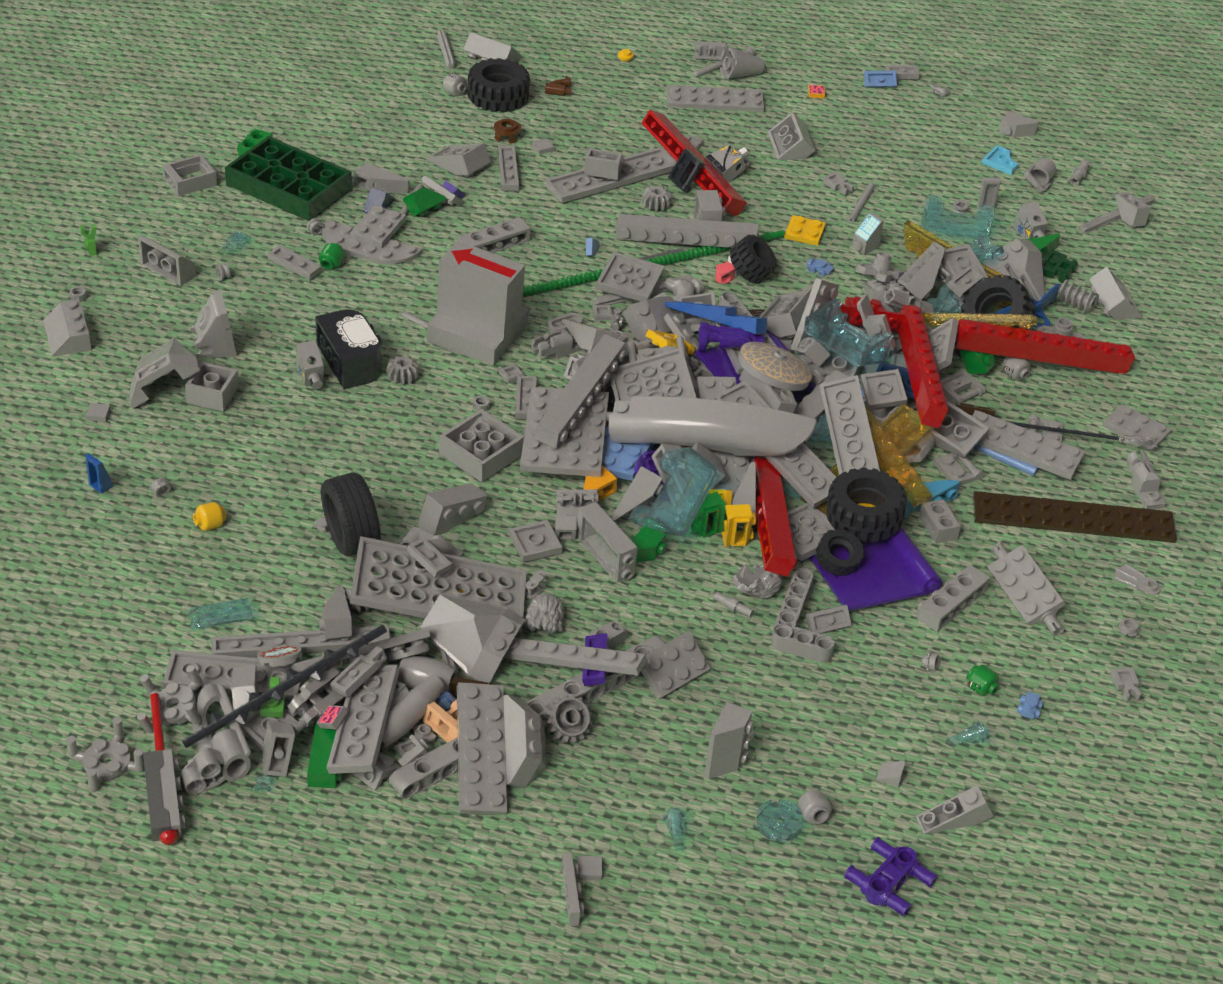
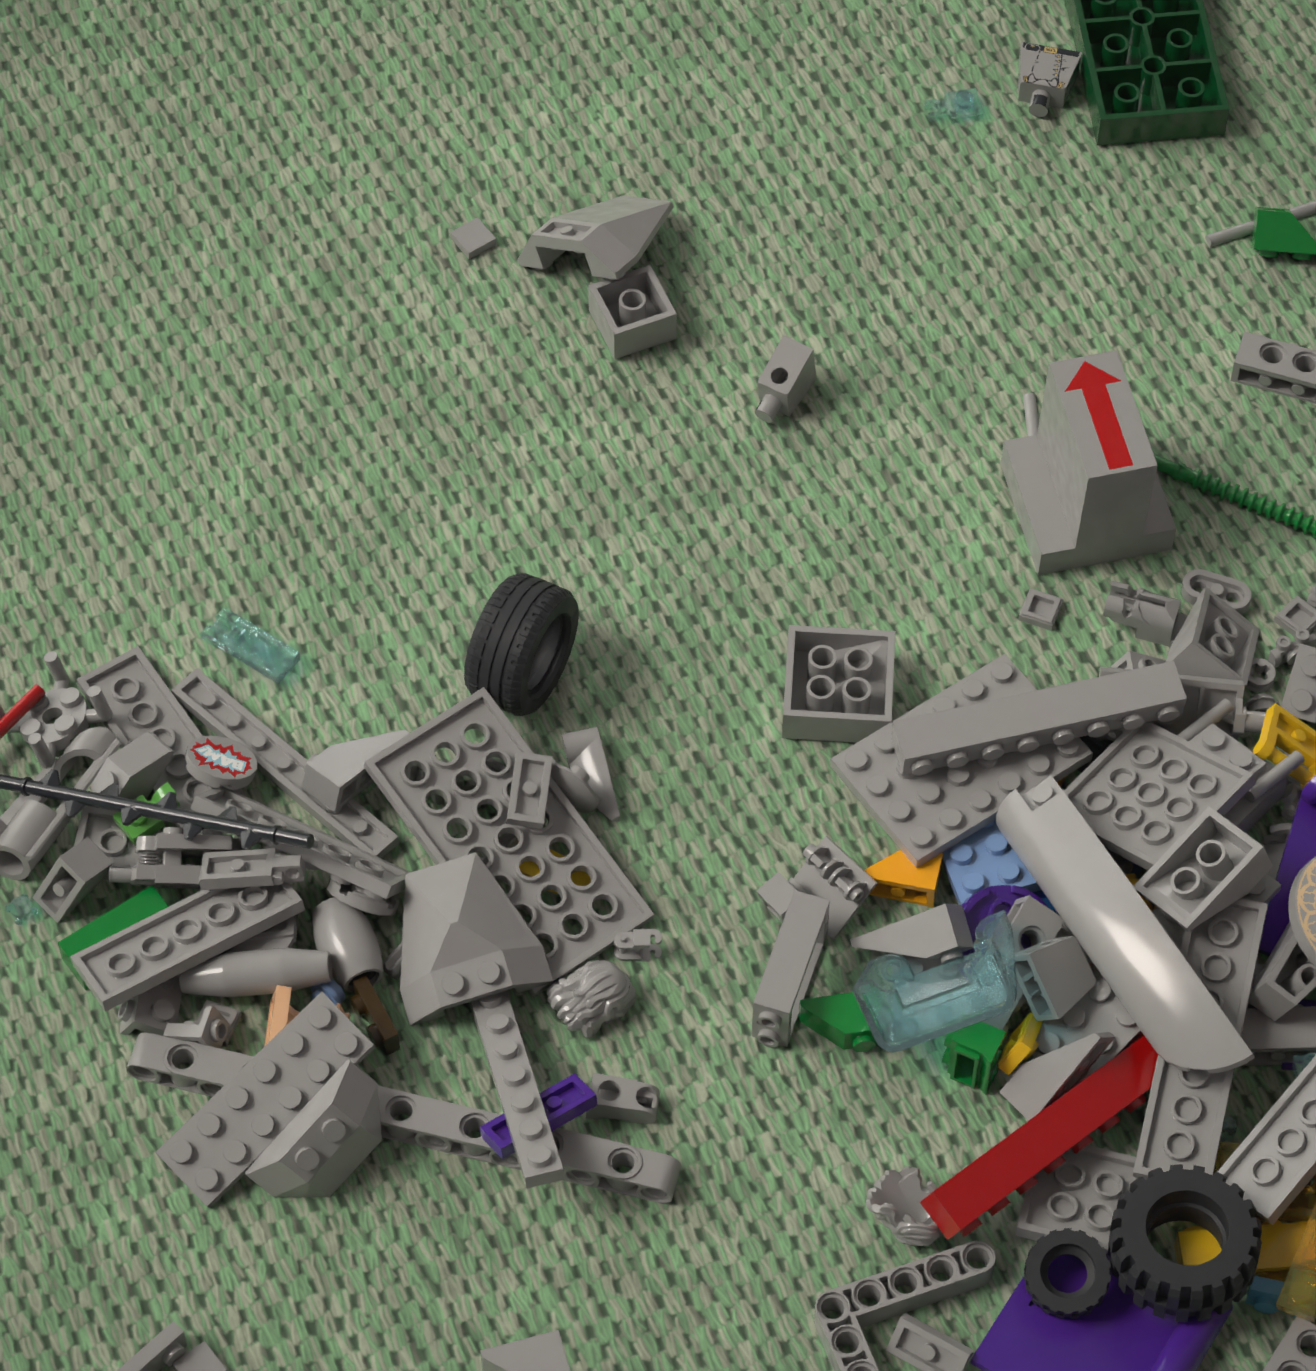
camera: 55 degrees right, 15 degrees up
(67, 329) = (584, 86): light grey slope -> none
(78, 293) = (665, 30): light grey axle -> none
(97, 474) = (350, 332): blue slope -> none
(160, 487) = (403, 409): light grey axle -> none
(165, 261) = (823, 70): light grey slope -> none
(209, 516) = (402, 499): yellow head -> none
(214, 329) = (734, 230): light grey piece -> none
(223, 271) = (876, 141): light grey bush -> none
(258, 209) = (1046, 76): none -> light grey torso
(294, 262) = (986, 199): light grey plate -> none
(312, 224) = (1087, 162): light grey bush -> none
(331, 256) = (1043, 227): green head -> none
(332, 717) = (157, 899): tile -> none
(349, 347) = (864, 395): black brick -> none
(370, 177) = (1270, 147): light grey slope -> none
(372, 236) = (1133, 238): light grey plate -> none
(377, 198) = (1226, 185): slope -> none
(402, 369) = (900, 483): light grey gear -> none
(423, 731) = (253, 1024): light grey plate -> none
(450, 508) = (682, 742): light grey wedge -> none
(481, 399) = (935, 612): light grey axle -> none
(524, 386) = (1022, 647): light grey plate -> none
(535, 541) = (725, 882): light grey plate -> none
(557, 721) = (434, 1147): light grey gear -> none
(674, 664) = (640, 1215): light grey plate -> none
(714, 378) = (1204, 871): none -> light grey slope
(733, 604) = (846, 1208): light grey bar -> none
(738, 514) = (991, 1104): yellow window -> none

